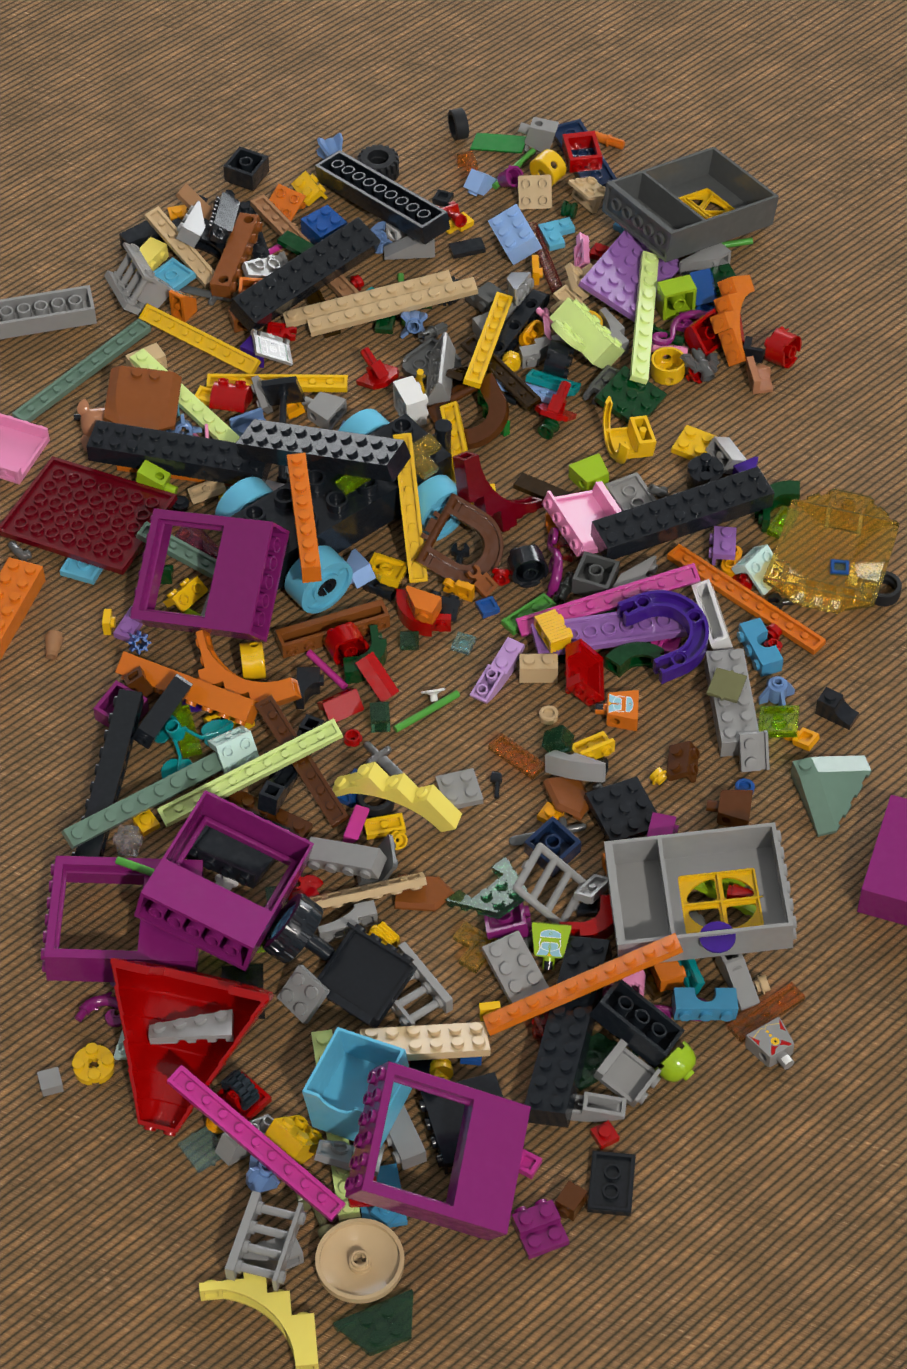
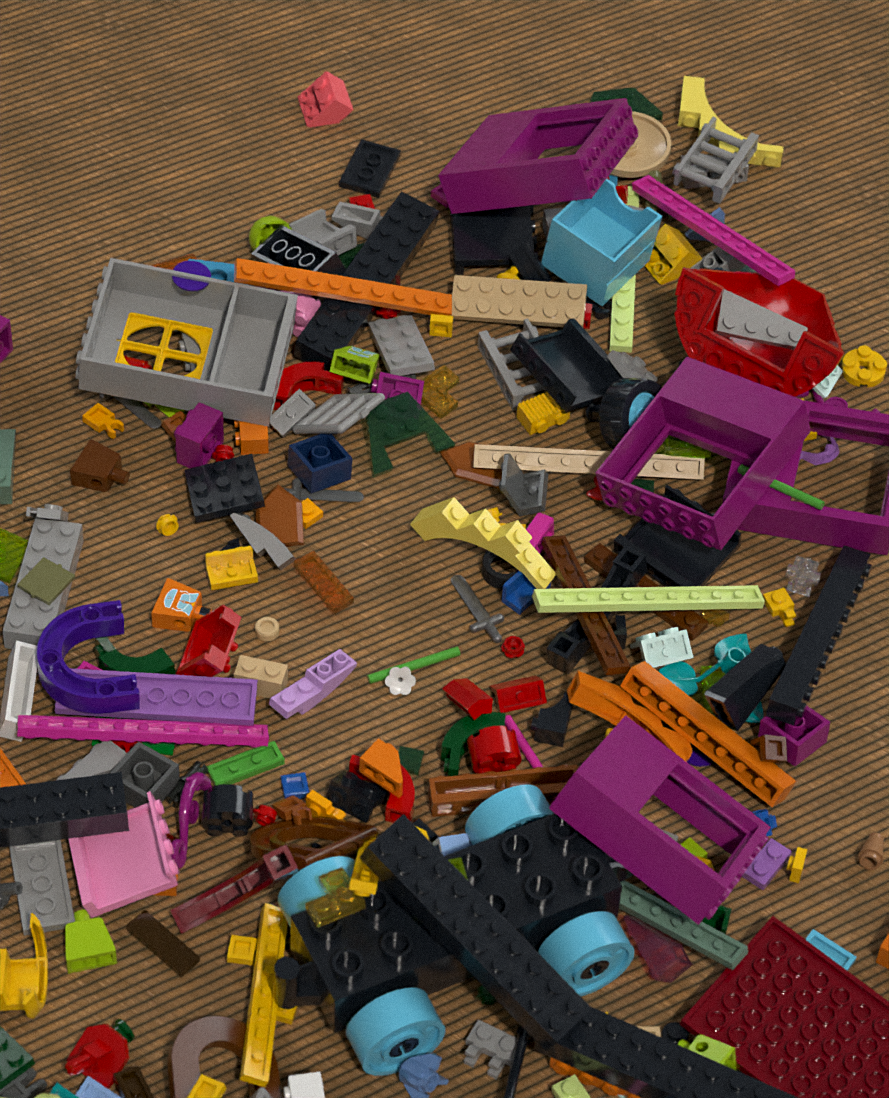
camera: 170 degrees left, 0 degrees up
(142, 800) = (783, 599): sand green plate -> none
(304, 518) = (524, 826): orange brick -> none
(346, 858) = (559, 489): light grey brick -> none
(362, 914) = (570, 436): light grey slope -> none
(380, 717) = (474, 661): clear green brick -> none
(460, 788) = (402, 563): light grey plate -> none
(463, 643) = (342, 736): clear light blue plate -> none
(496, 777) = (356, 564): black hand -> none
(539, 1228) = (446, 143): magenta plate -> none
(553, 630) = (231, 690): yellow brick -> none
(558, 739) = (271, 579): clear green brick -> none
(571, 1201) = (415, 155): reddish brown brick -> none
(681, 1246) = (325, 101): none -> coral slope
(683, 761) = (132, 534): reddish brown bracket -> none
(744, 784) = (73, 495): blue tile -> none
(771, 1044) = (166, 239): light grey torso -> none

